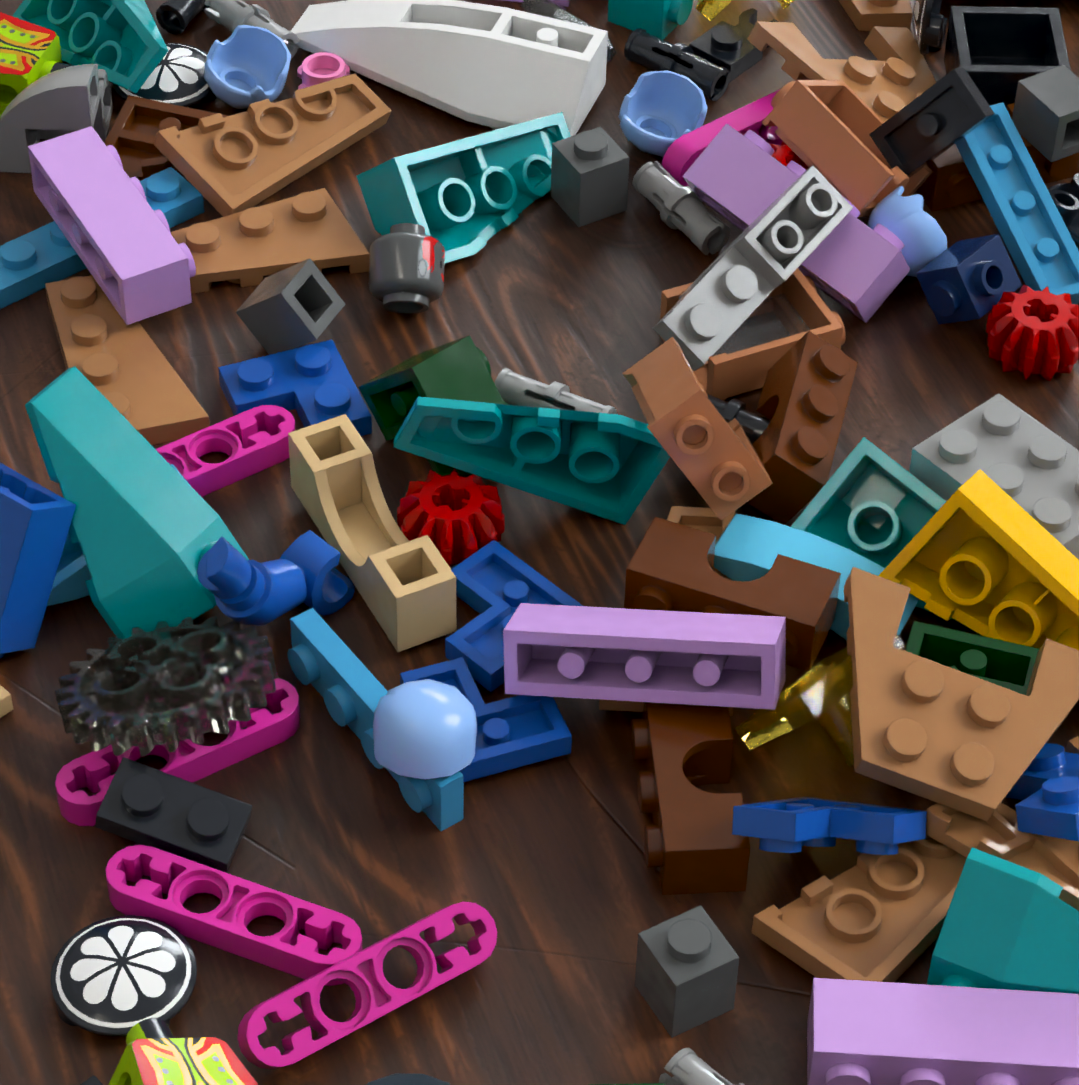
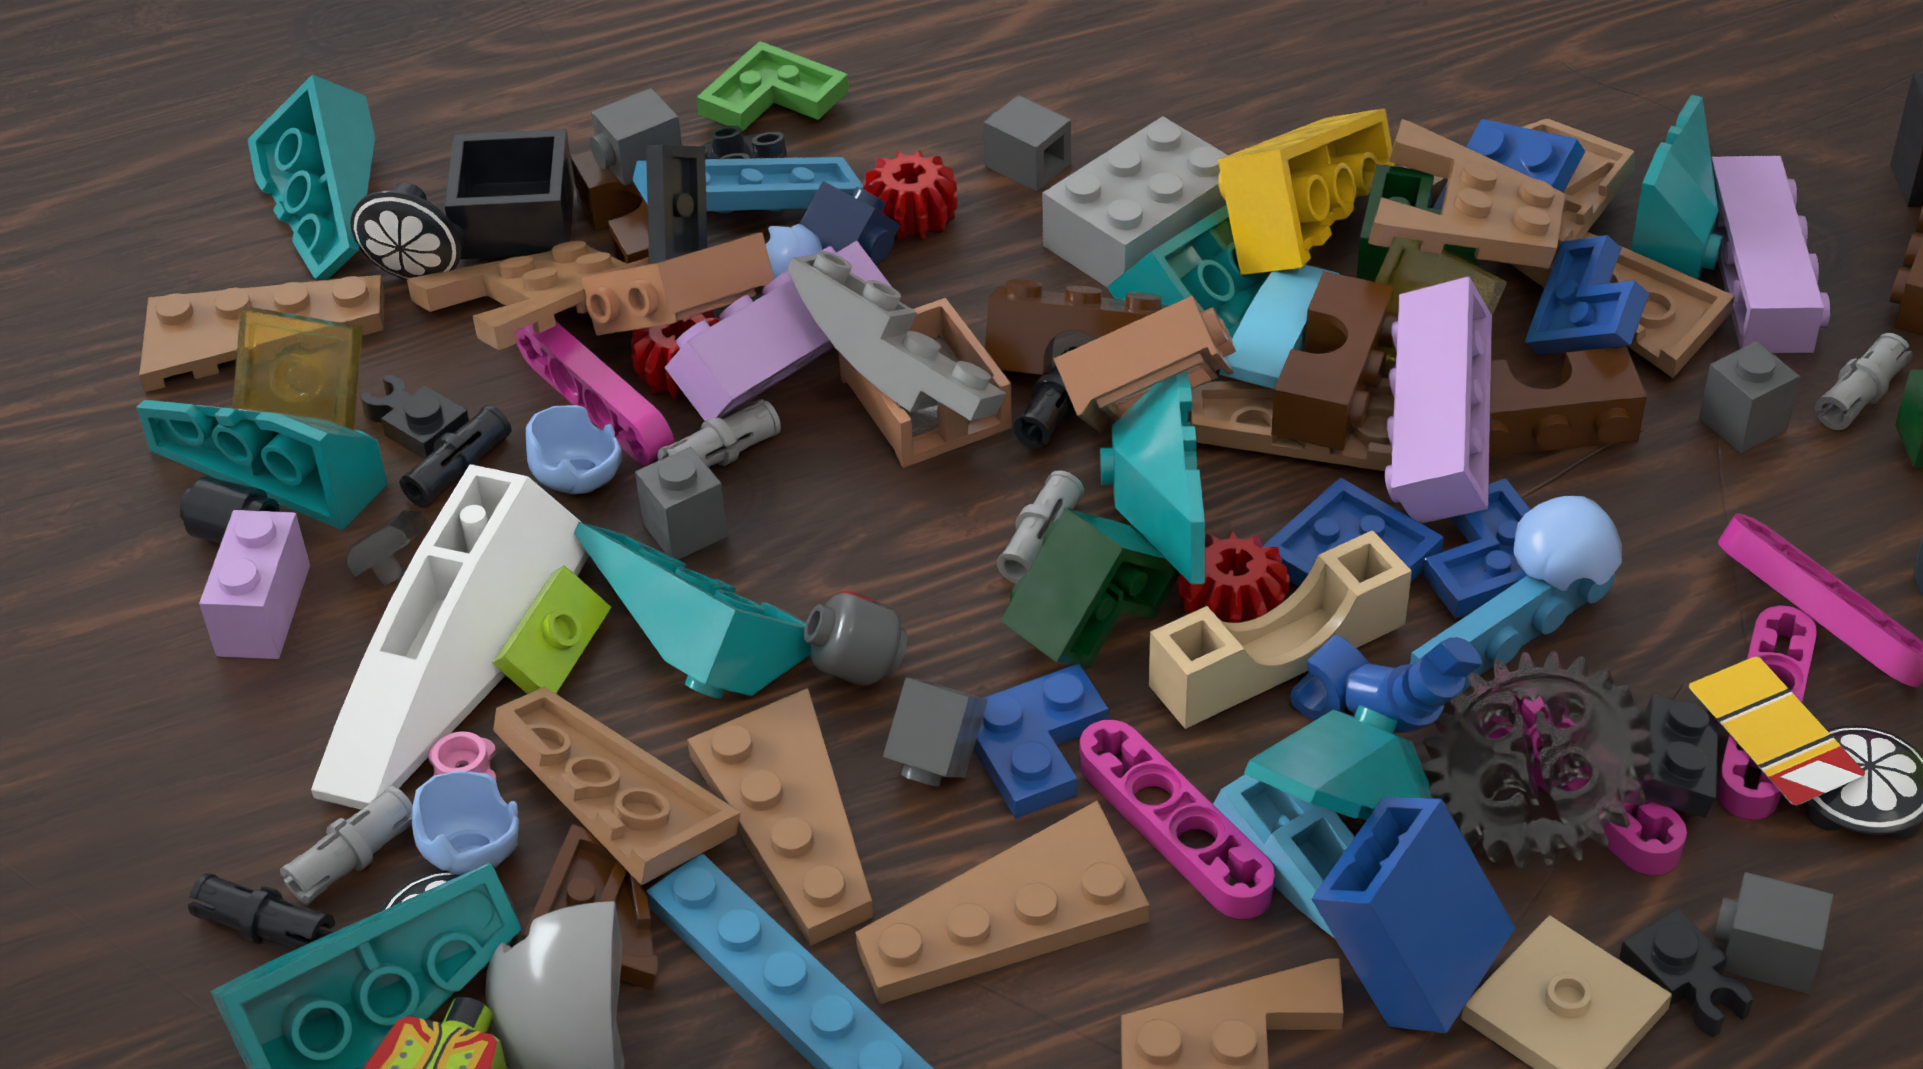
camera: 90 degrees left, 0 degrees up
(112, 225) = (815, 896): lavender brick -> none
(185, 895) = (1776, 730): none -> yellow sticker
(445, 110) = (552, 633): none -> lime plate

